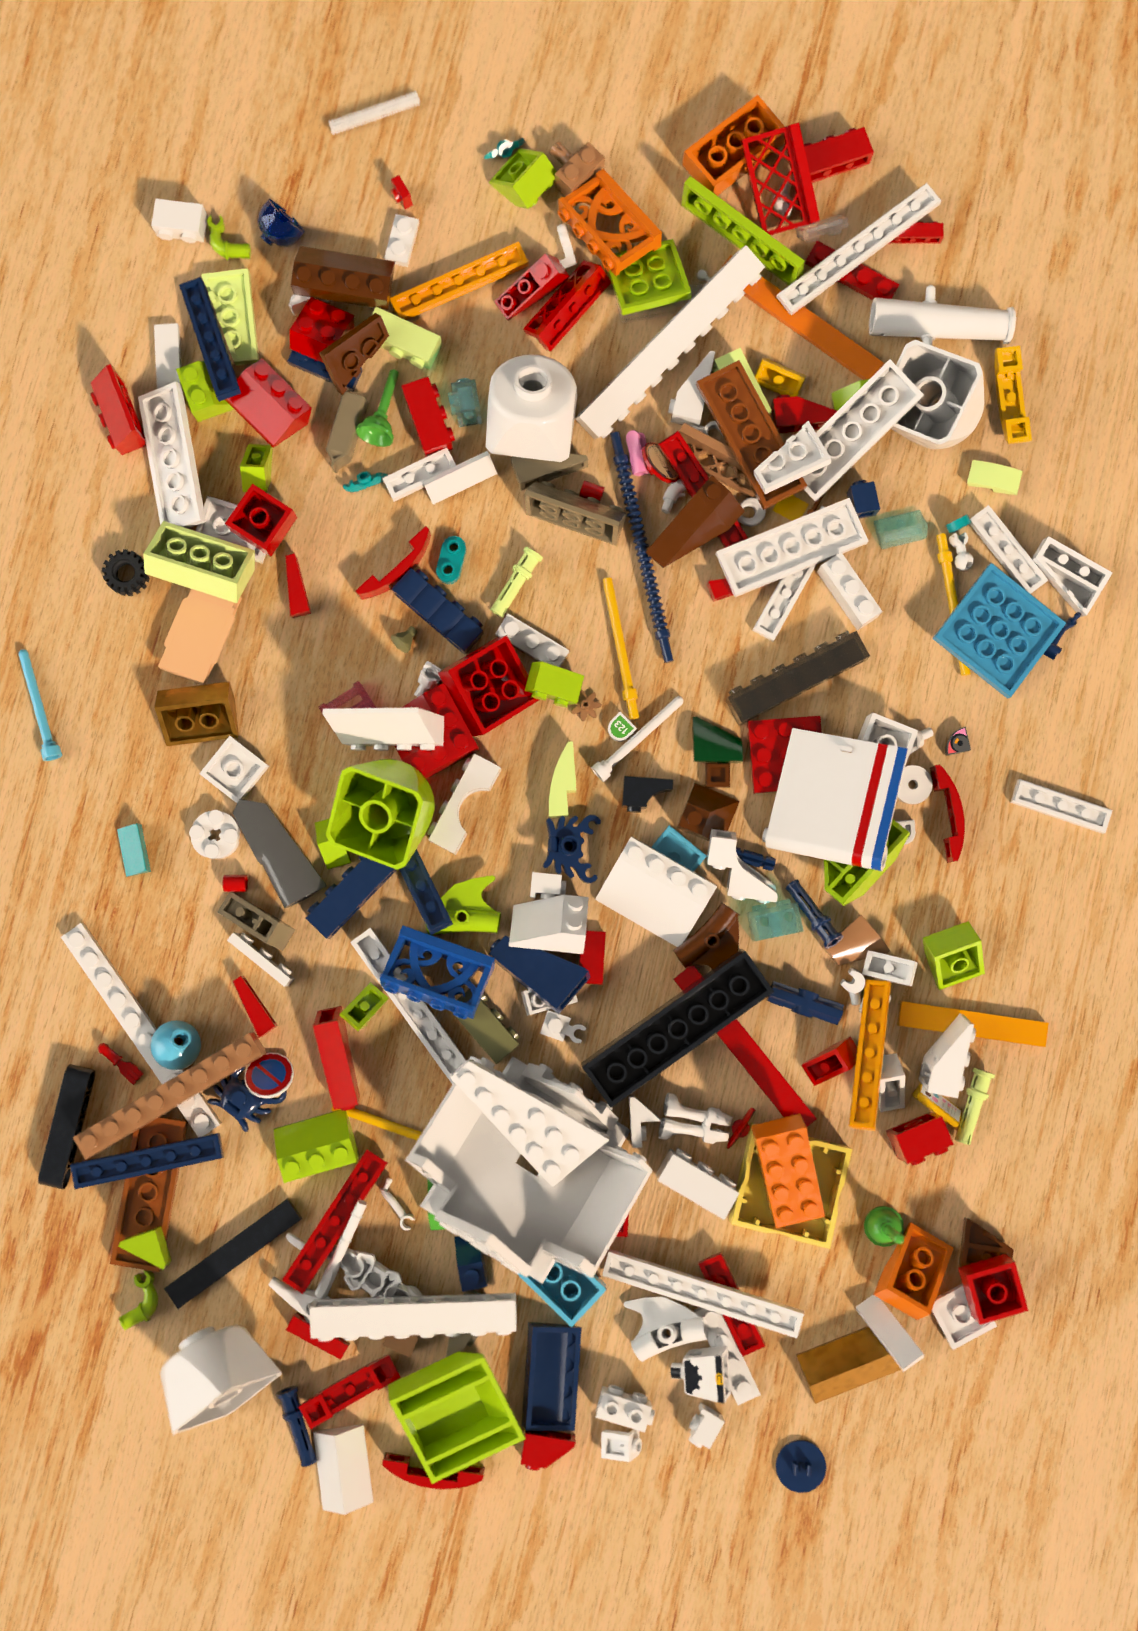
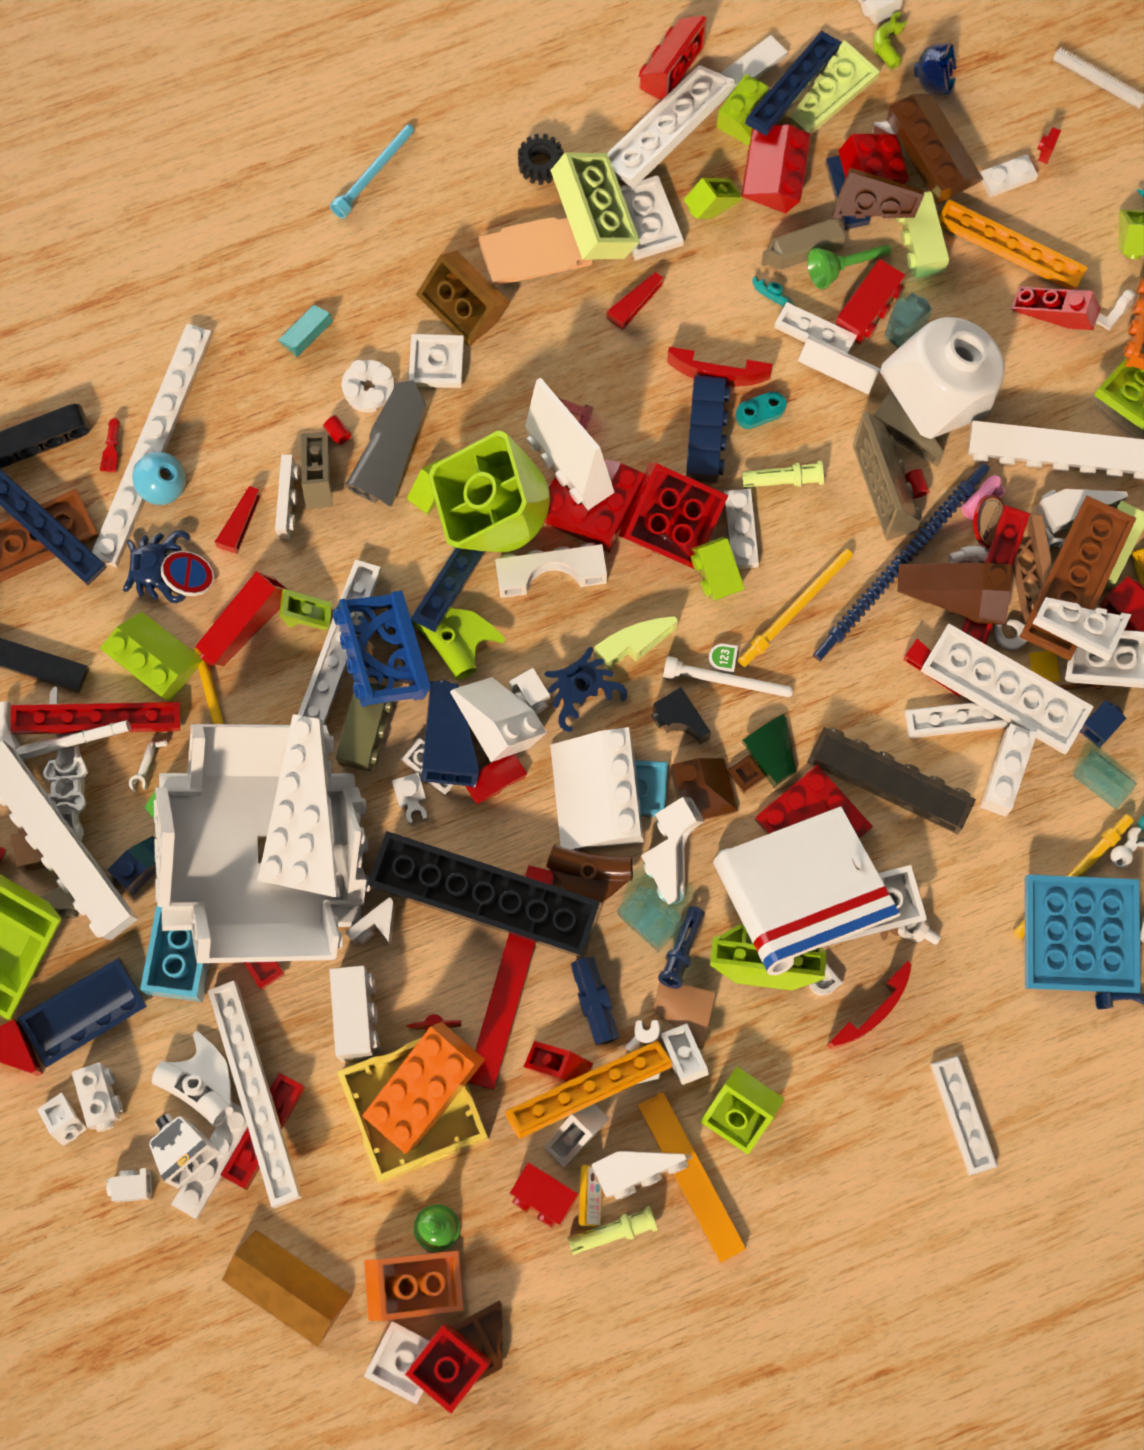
camera: 55 degrees right, 10 degrees down
(169, 1095) = (112, 500): medium nougat brick -> none
(261, 520) = (669, 227): red brick -> none
(348, 896) = (395, 530): dark blue brick -> none
(404, 639) = (658, 419): olive rock -> none
(428, 678) = (641, 460): white piece -> none
(570, 306) = (1067, 348): red fence -> none
(589, 709) = (719, 618): medium nougat plant -> none
(709, 1135) = (421, 985): white piece -> none
(756, 859) = (695, 862): dark blue axle -> none
(800, 1466) = (153, 1309): dark blue piece -> none
(889, 1332) = (338, 1298): white tile -> none
(922, 788) = (865, 966): white piece -> none
(958, 742) = (947, 972): dark grey tile -> none

